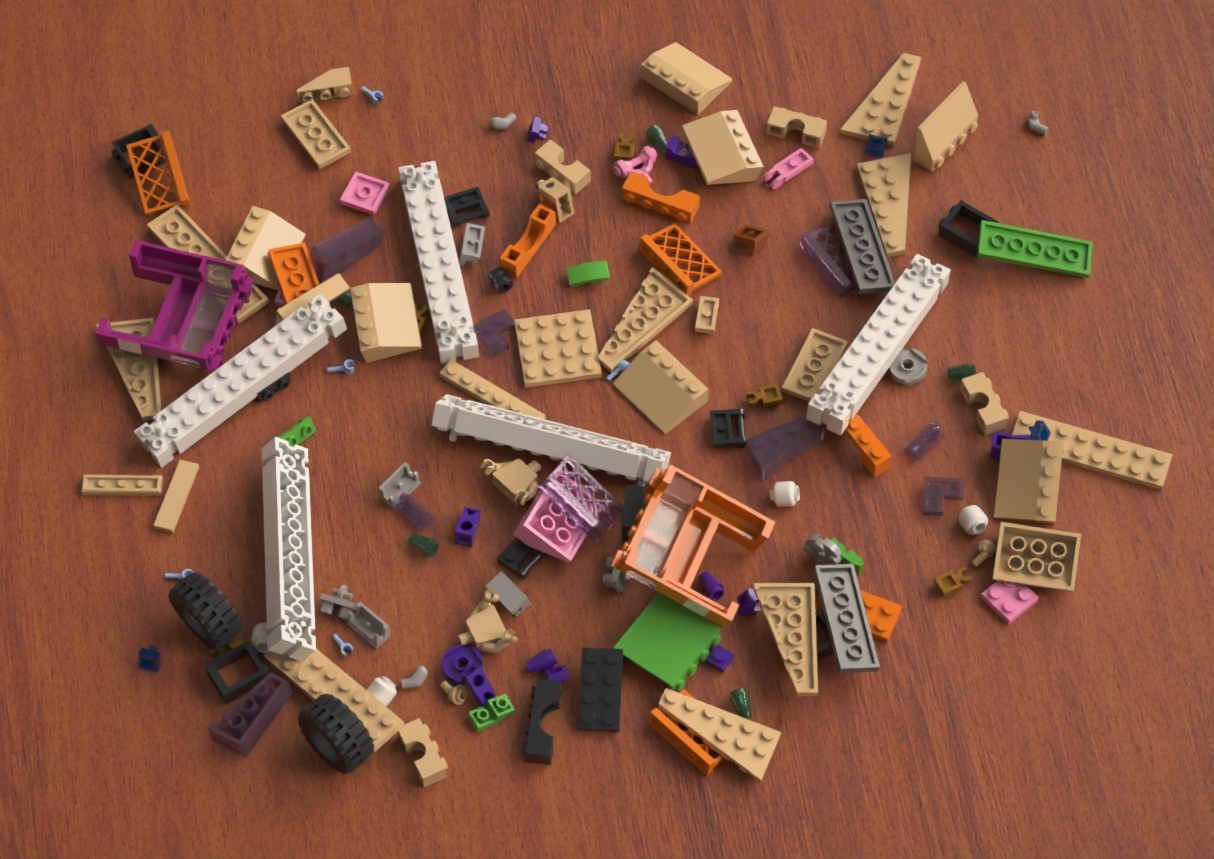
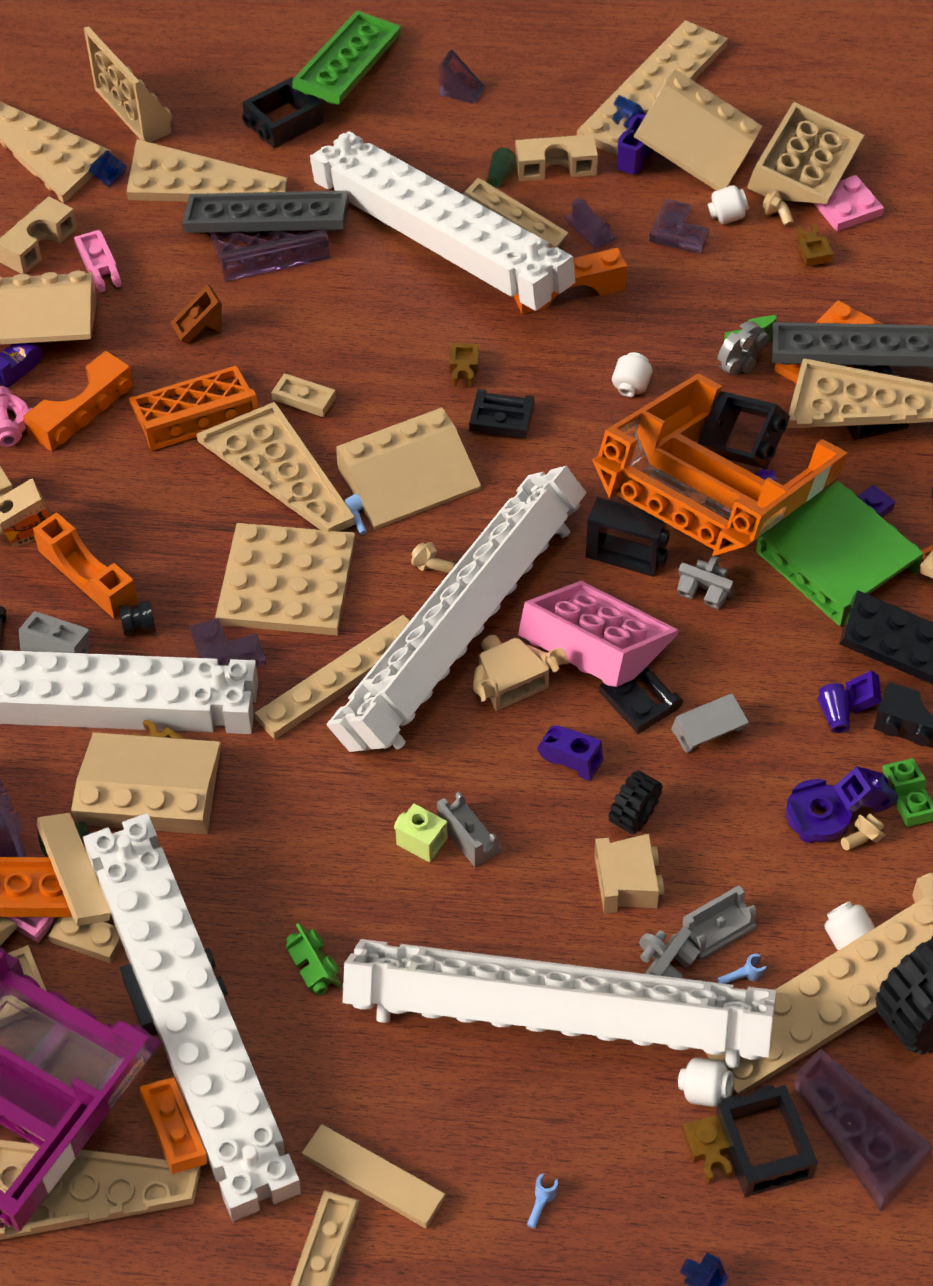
camera: 75 degrees left, 5 degrees down
(168, 396) = (173, 1125): none -> orange plate
(205, 610) = (659, 1146): black tyre -> none
(347, 367) = (208, 864): light blue hand -> none
(389, 461) = (421, 832): none -> yellowish green brick
(390, 571) = (628, 873): none -> tan hips
(414, 511) = (522, 818): clear purple hinge -> none
(417, 679) = (834, 883): light grey arm -> none
(425, 545) = (587, 817): clear green cone -> none
(435, 563) = (635, 802): none -> black tyre
(486, 628) = (768, 762): tan torso -> none
(573, 506) = (582, 589): clear purple fence -> none
(588, 272) = (172, 511): bright green slope -> none
(593, 414) = (424, 558): none -> tan plate
(747, 603) = (795, 451): dark purple tile -> none
(757, 556) = (726, 410): none -> black window
(781, 445) = (555, 362): wedge -> none
(814, 364) = (435, 303): tan plate -> none
(908, 390) = (516, 212): none -> tan plate
(1034, 124) = (151, 25): light grey arm -> none
(1043, 324) = (458, 80): none -> slope

